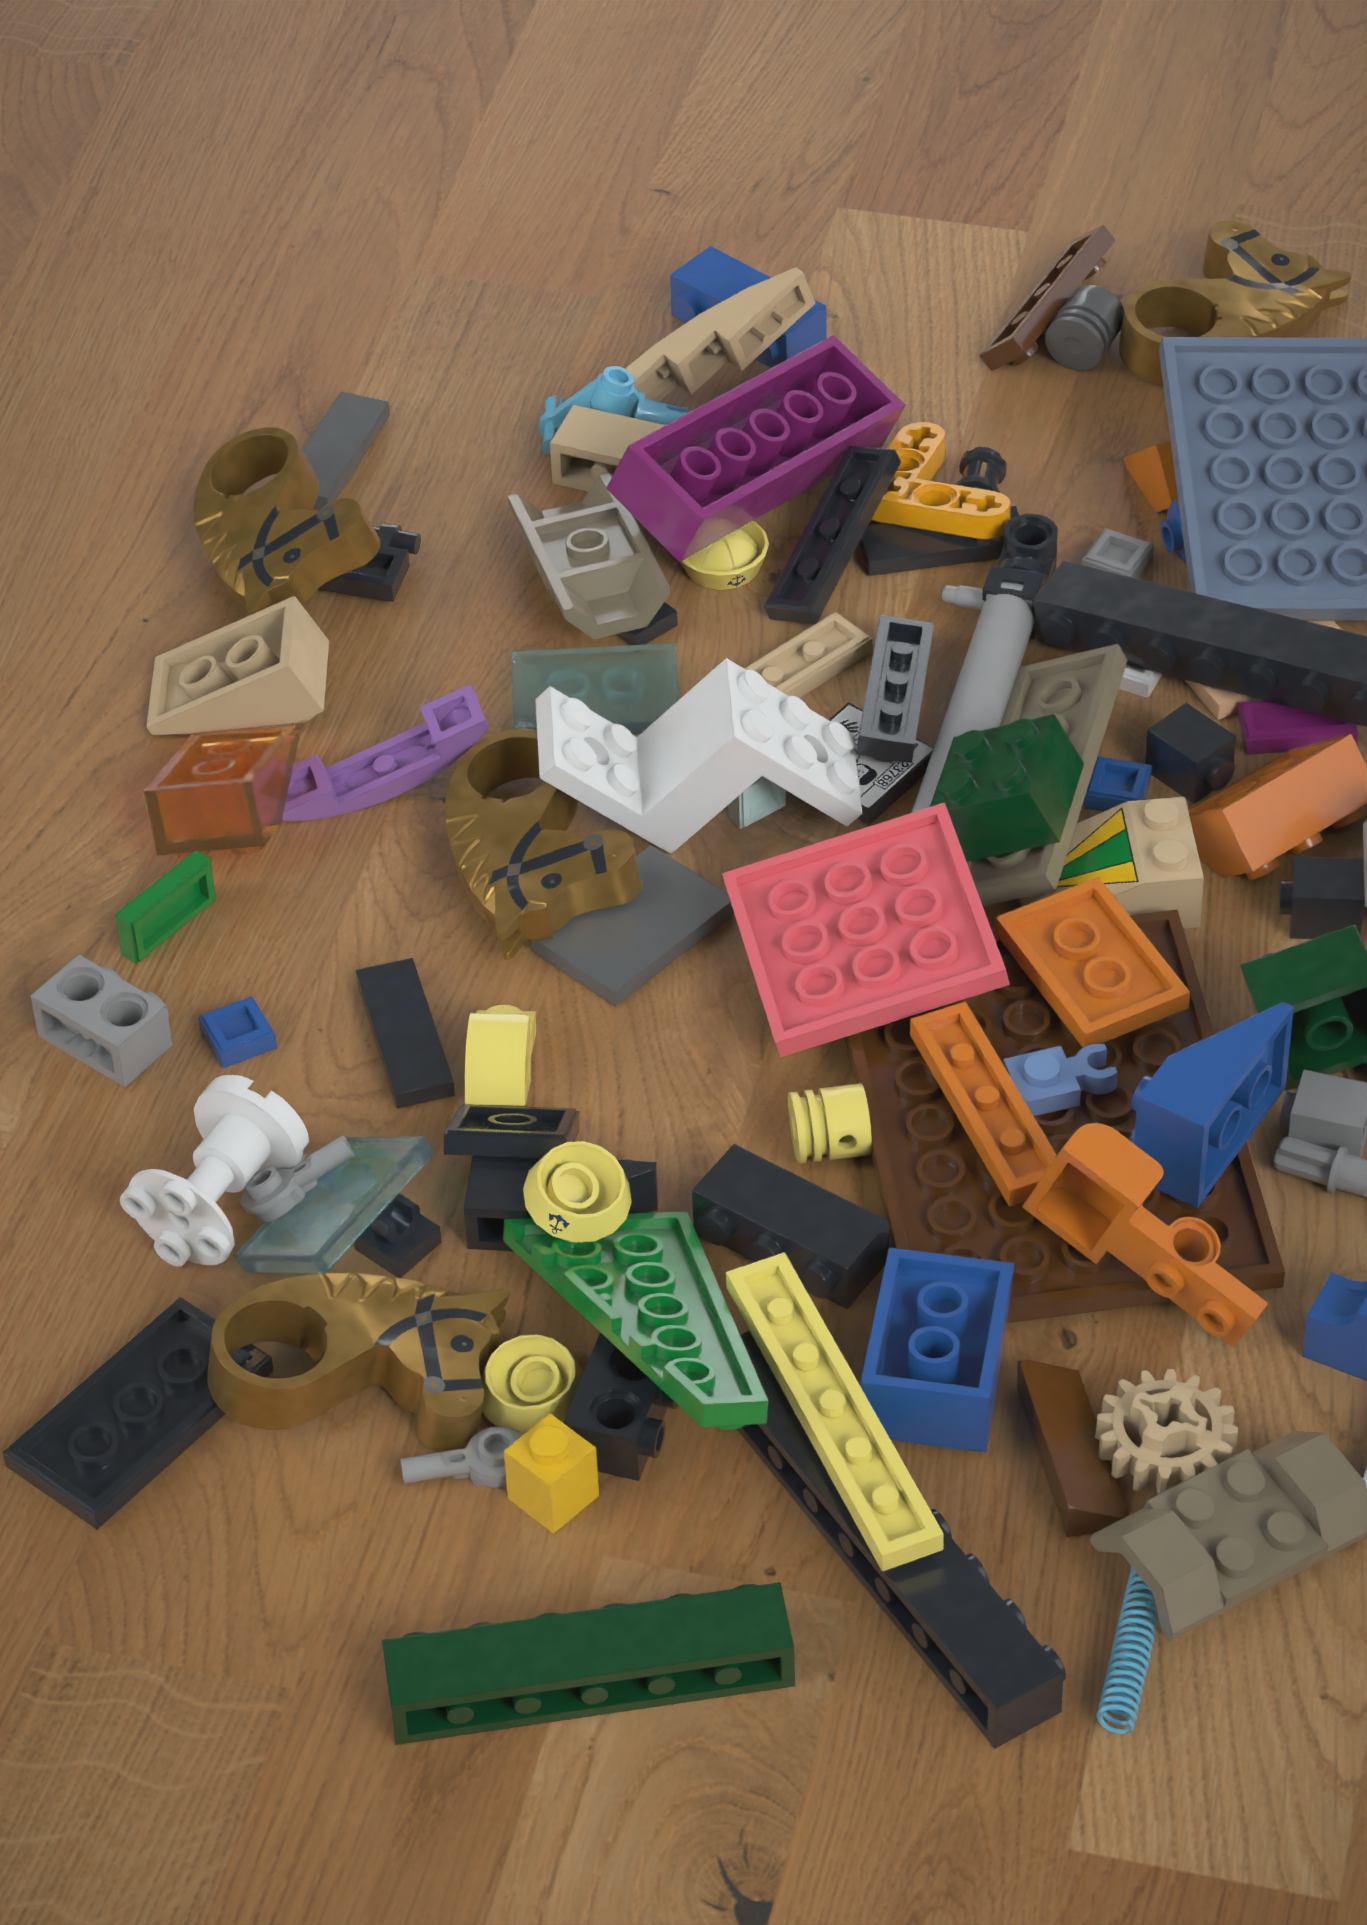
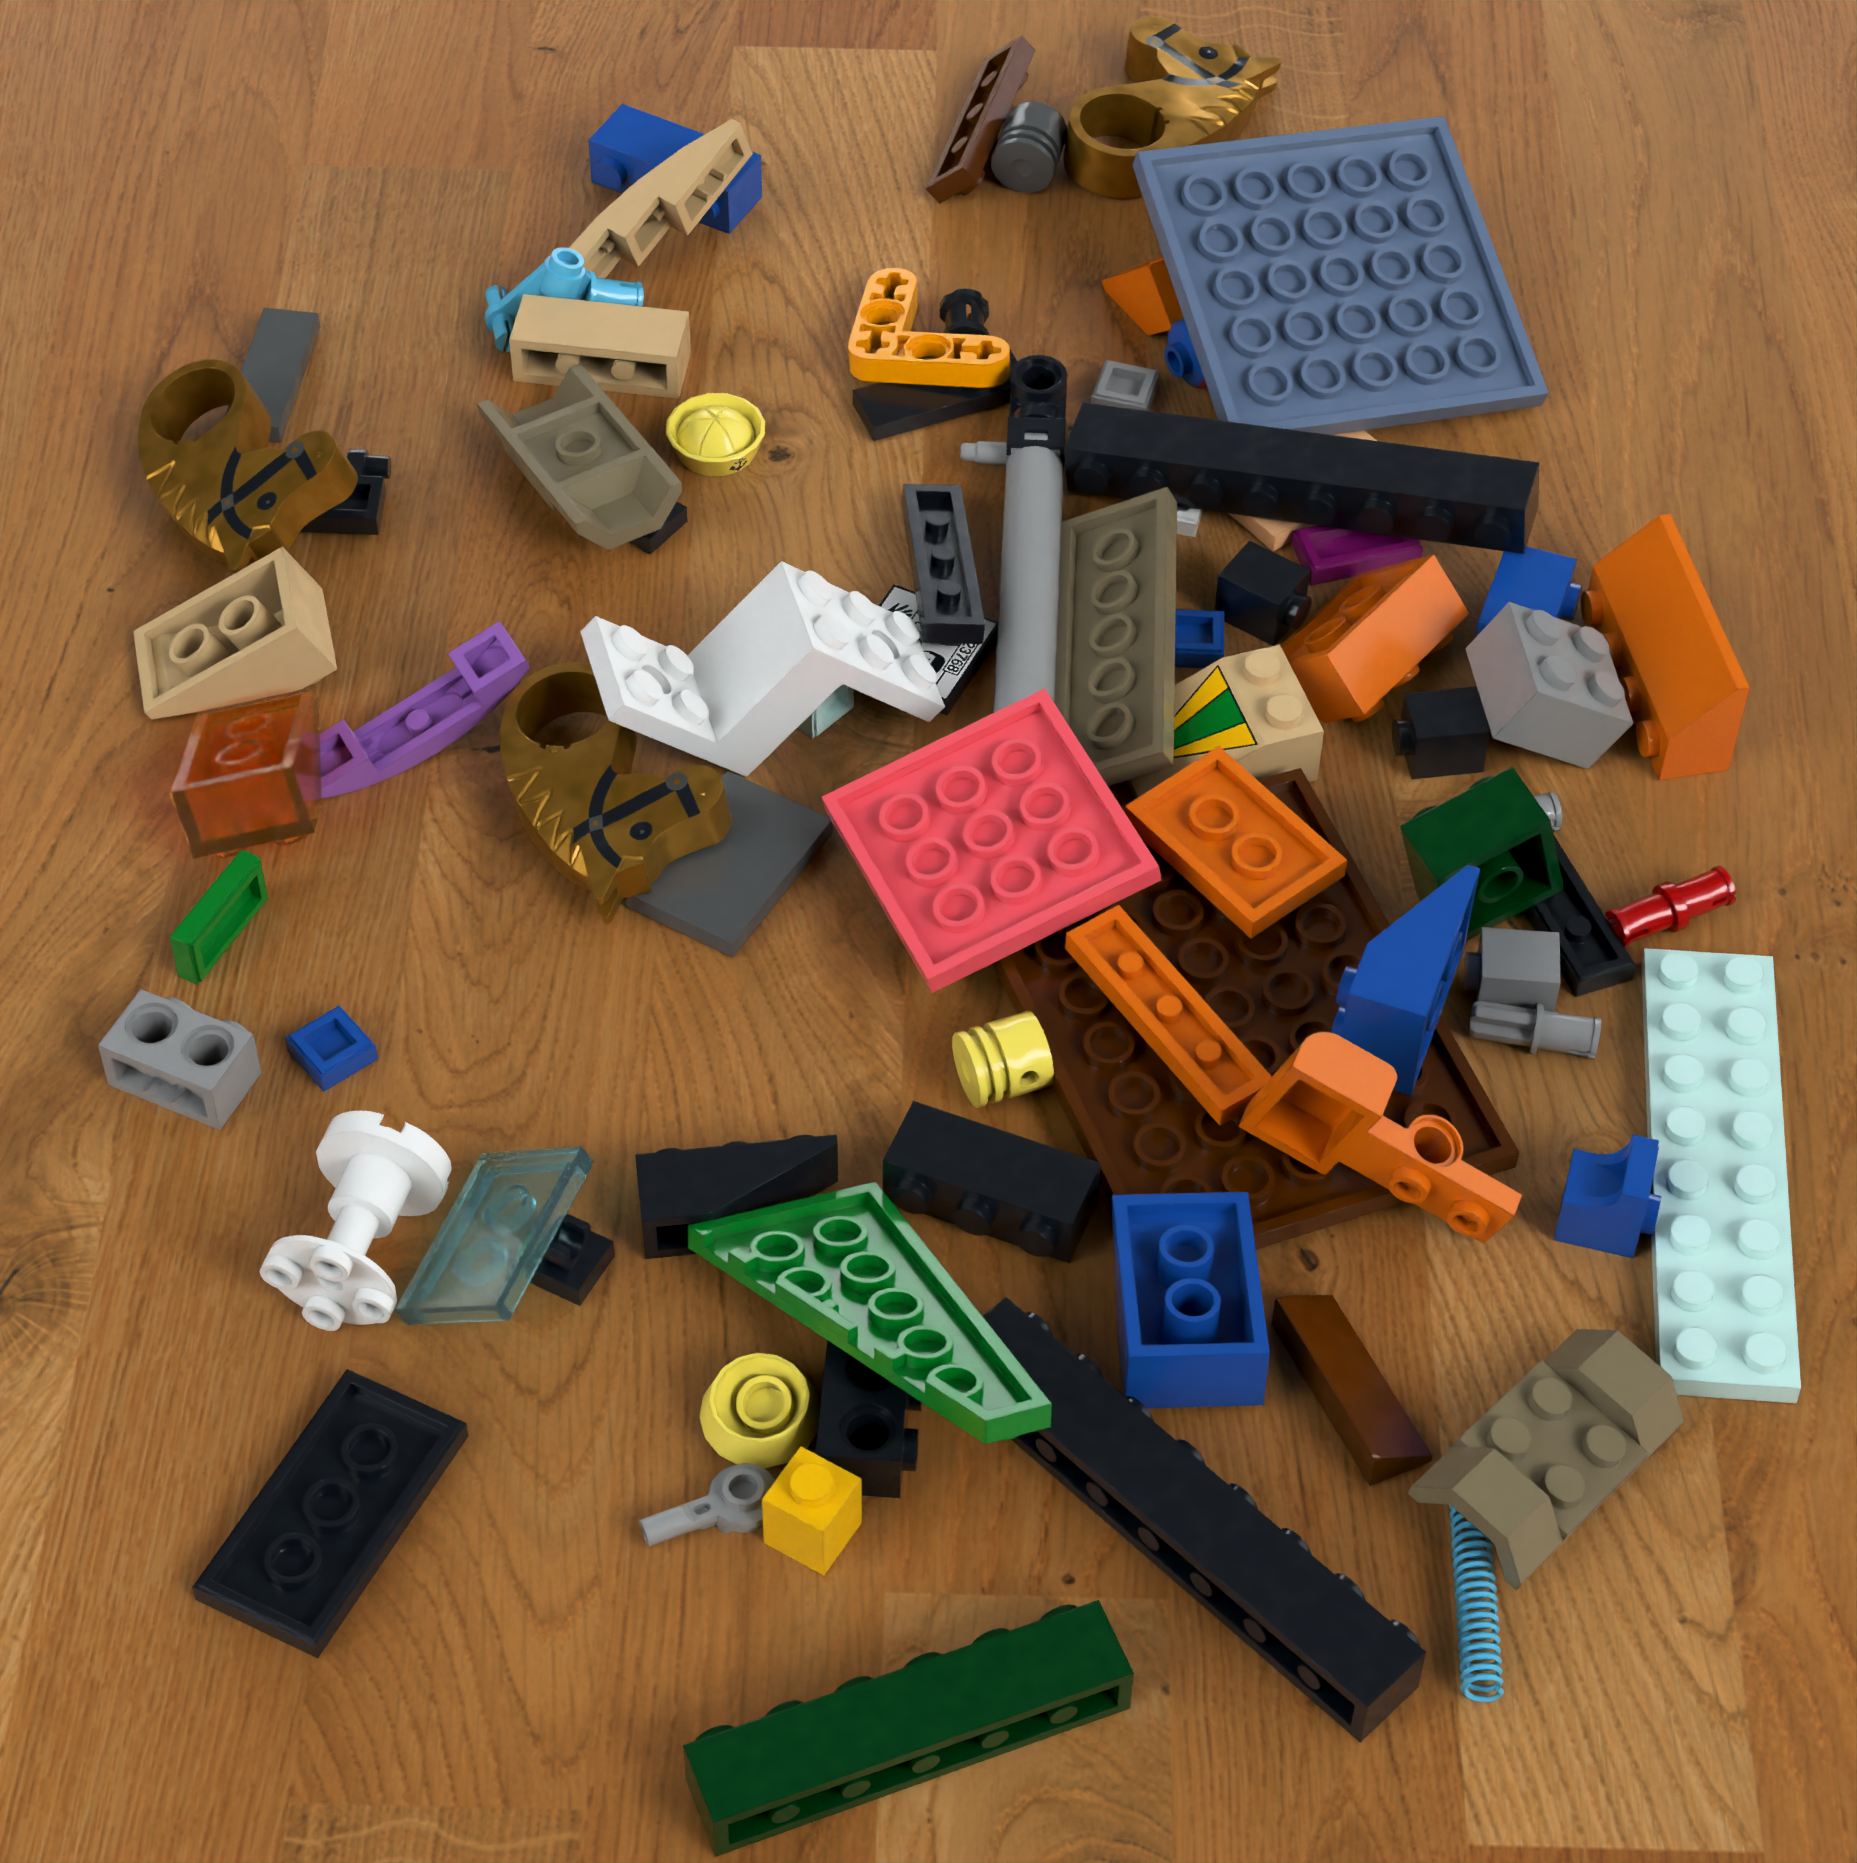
camera: 15 degrees left, 5 degrees up
(276, 1192) = (428, 1228): light grey plate -> none
(363, 1334) = (570, 1379): pearl gold animal -> none
(405, 1033) = (516, 1022): black tile -> none
(499, 1056) = (629, 1035): light yellow brick -> none
(509, 1130) = (668, 1122): black tile -> none
(577, 1192) = (764, 1185): light yellow hat -> none
(617, 682) = (651, 591): clear light blue tile -> none
(753, 447) = (732, 320): magenta brick -> none
(814, 656) = (839, 537): tan tile -> none
(832, 534) = (831, 403): black tile -> none
(834, 1412) = (1110, 1396): light yellow plate -> none
(1009, 786) = (1101, 658): dark green brick -> none
(1055, 1082) = (1232, 977): medium blue plate -> none
(1164, 1430) = (1447, 1353): tan gear -> none

